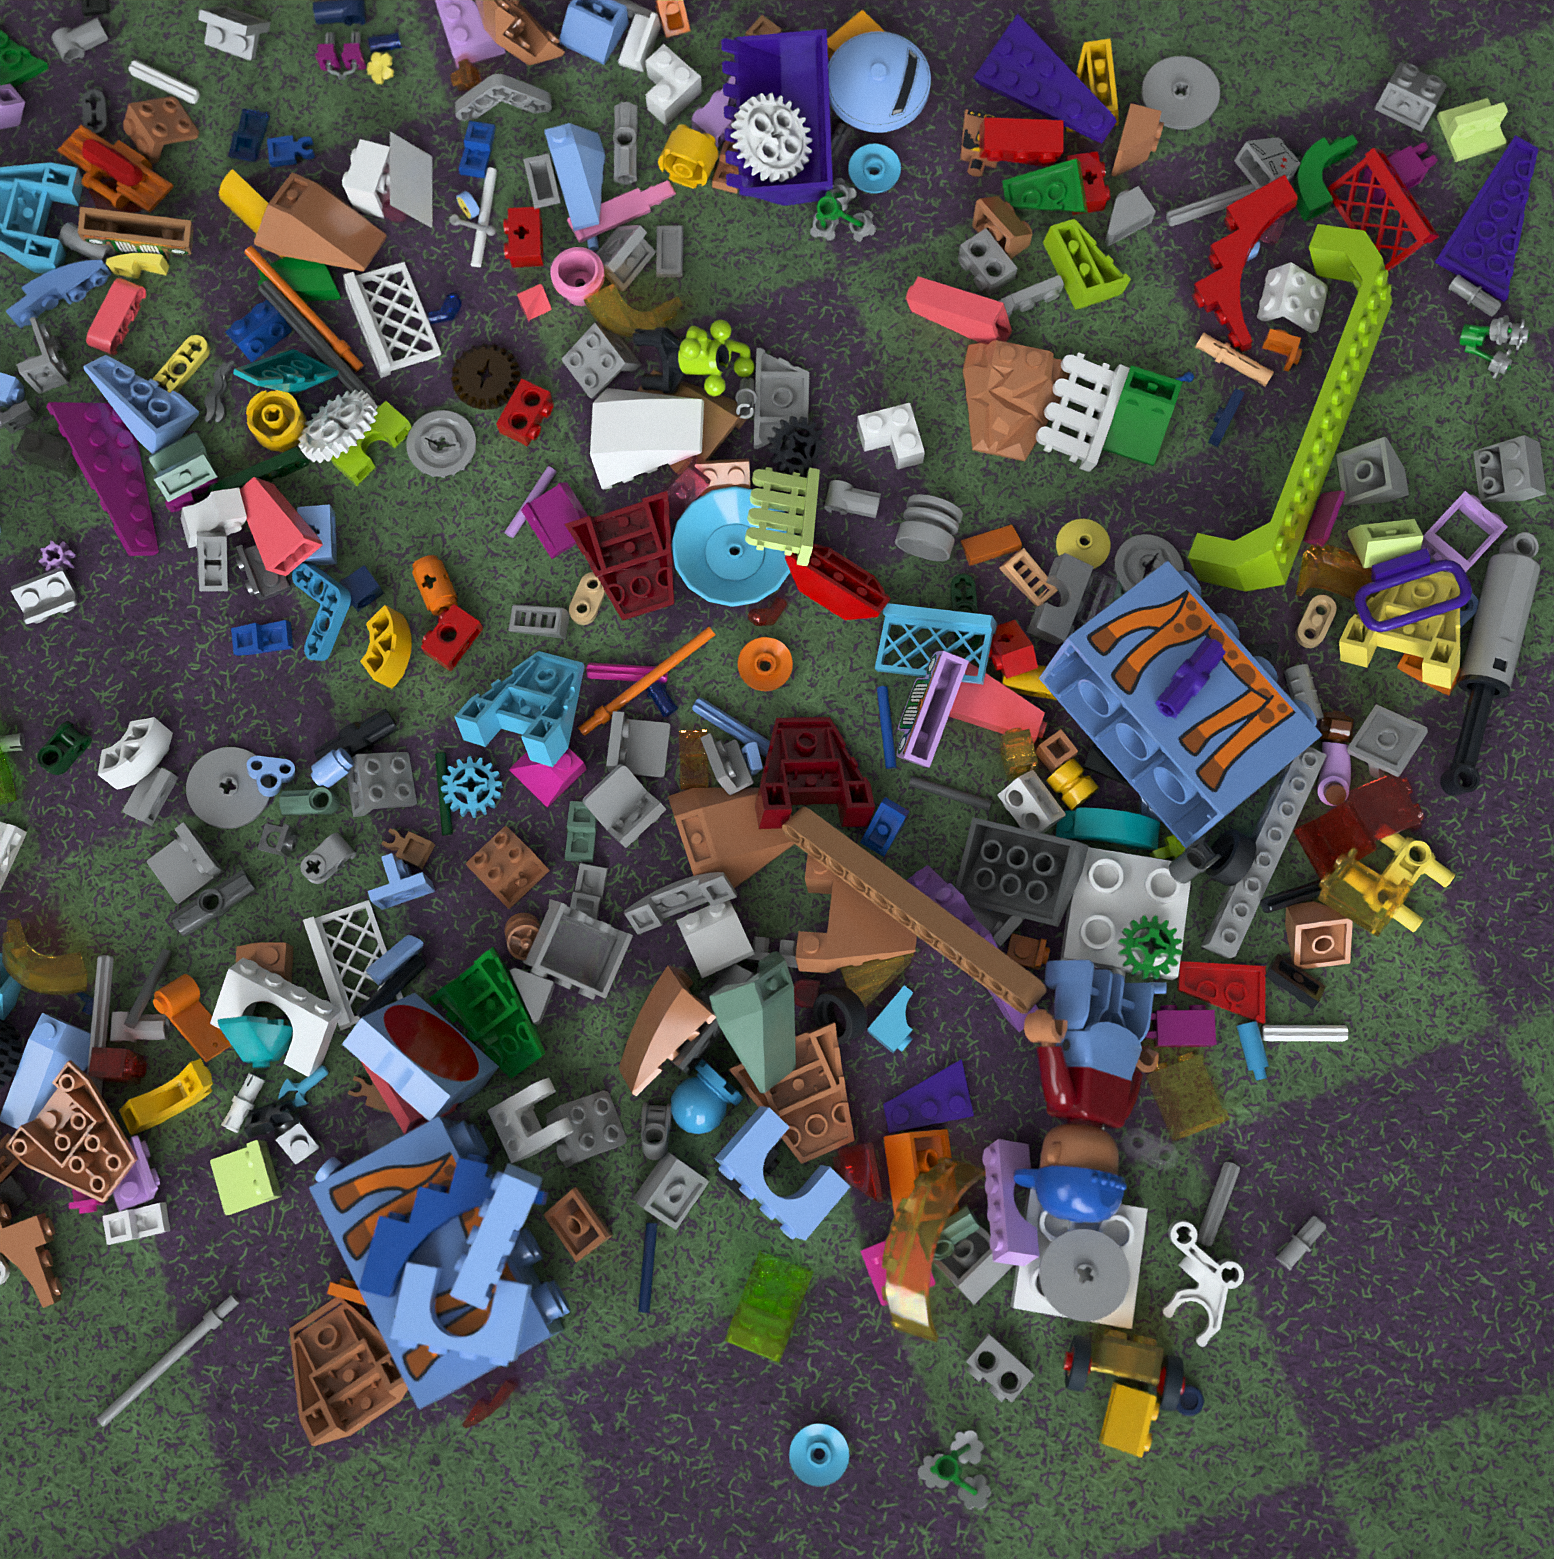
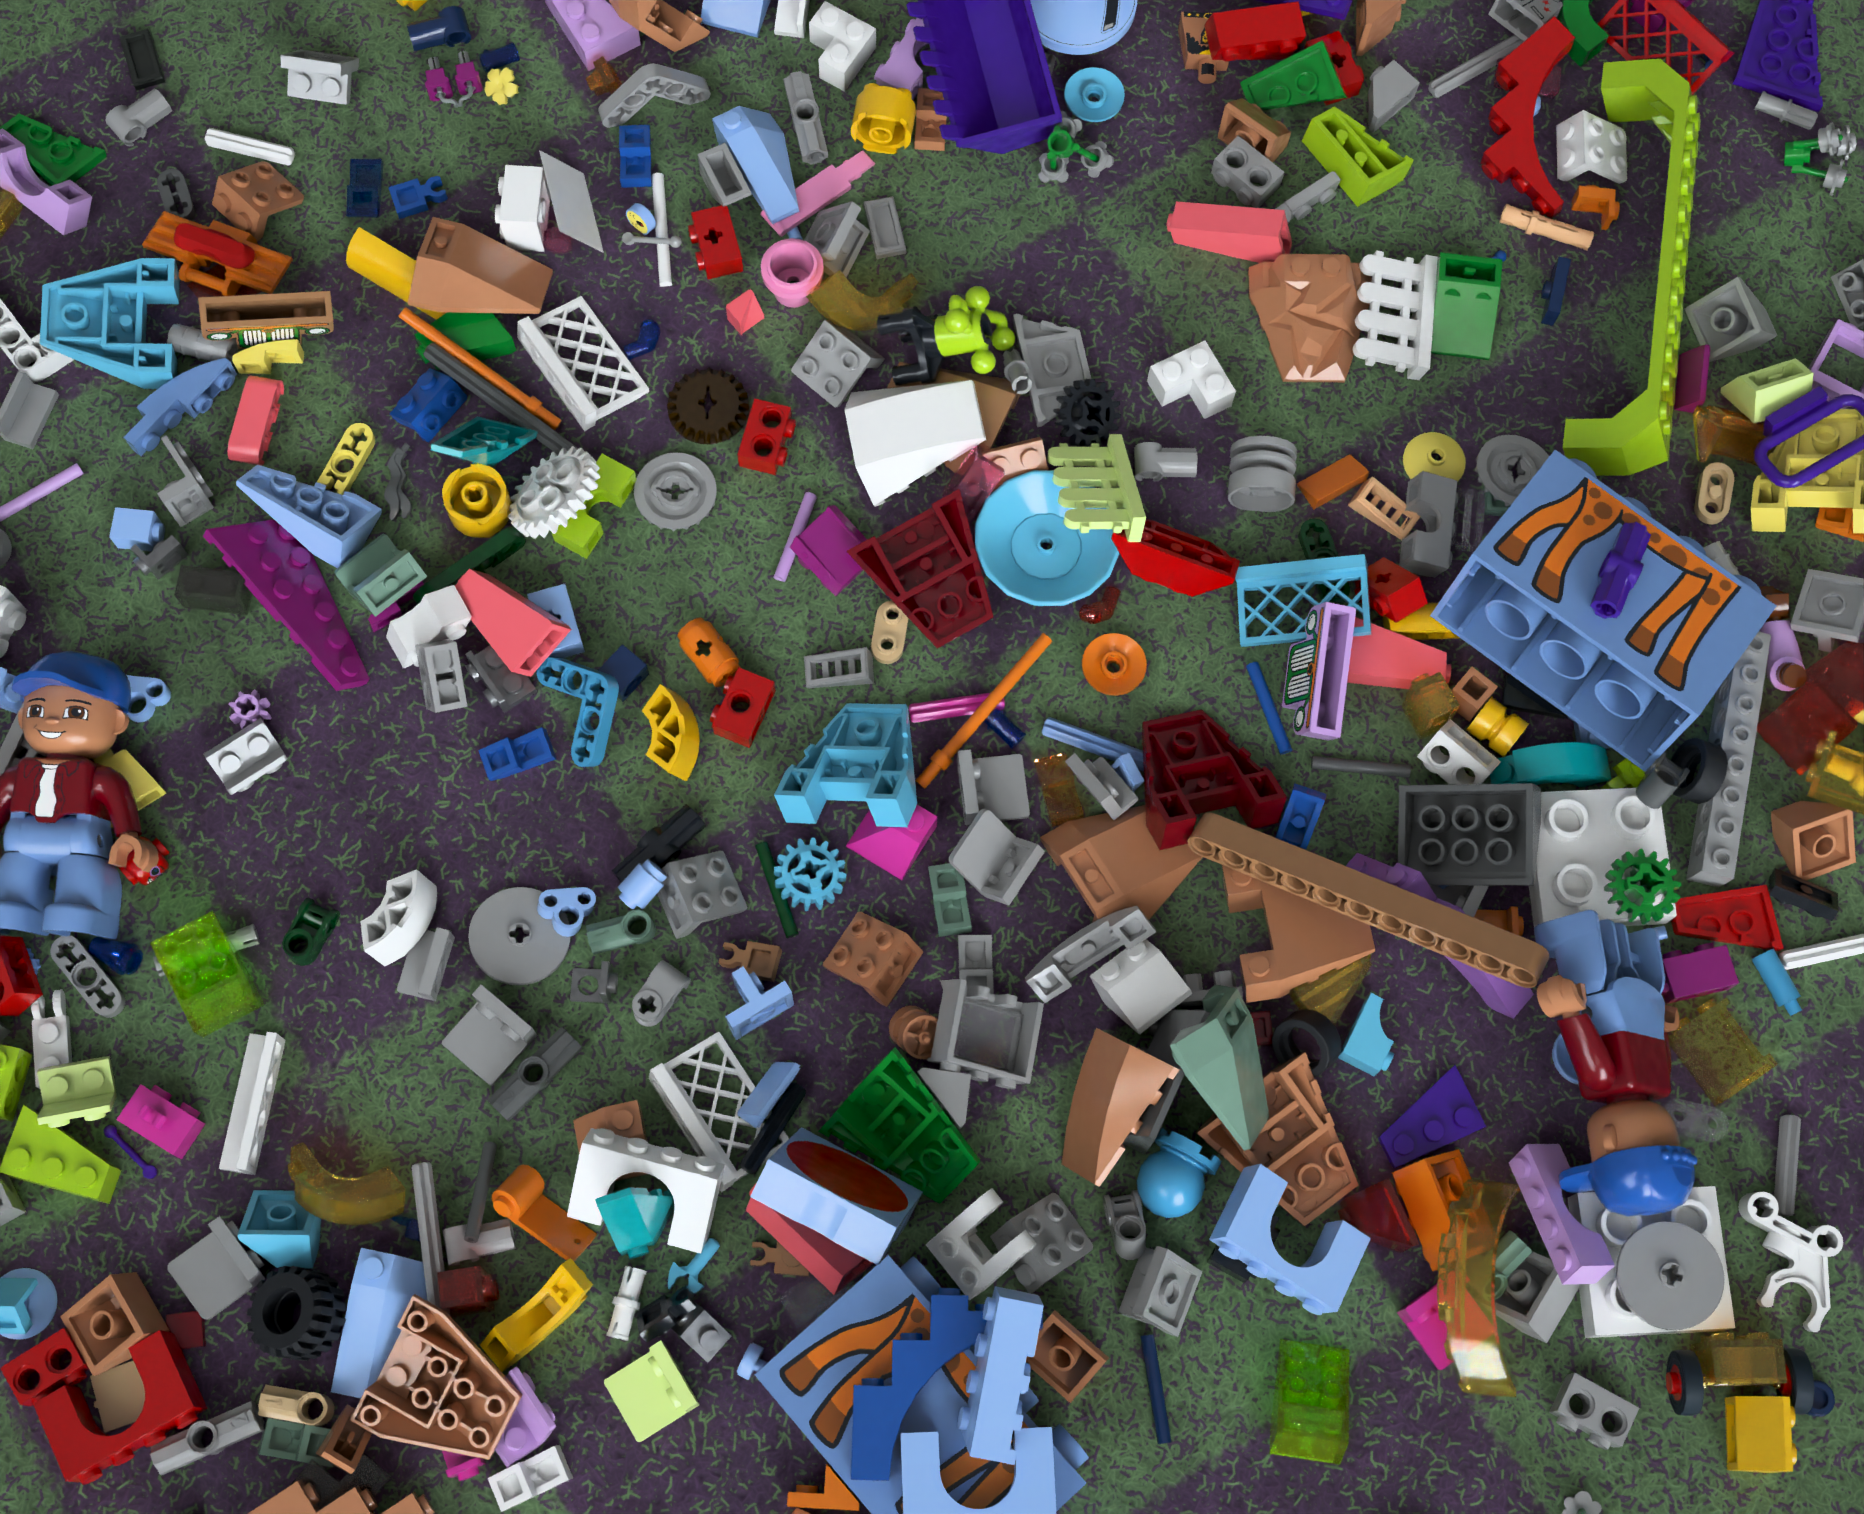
camera: 20 degrees left, 5 degrees down
(771, 137) = (978, 78): white gear -> none
(1291, 897) = (1777, 799): black axle -> none

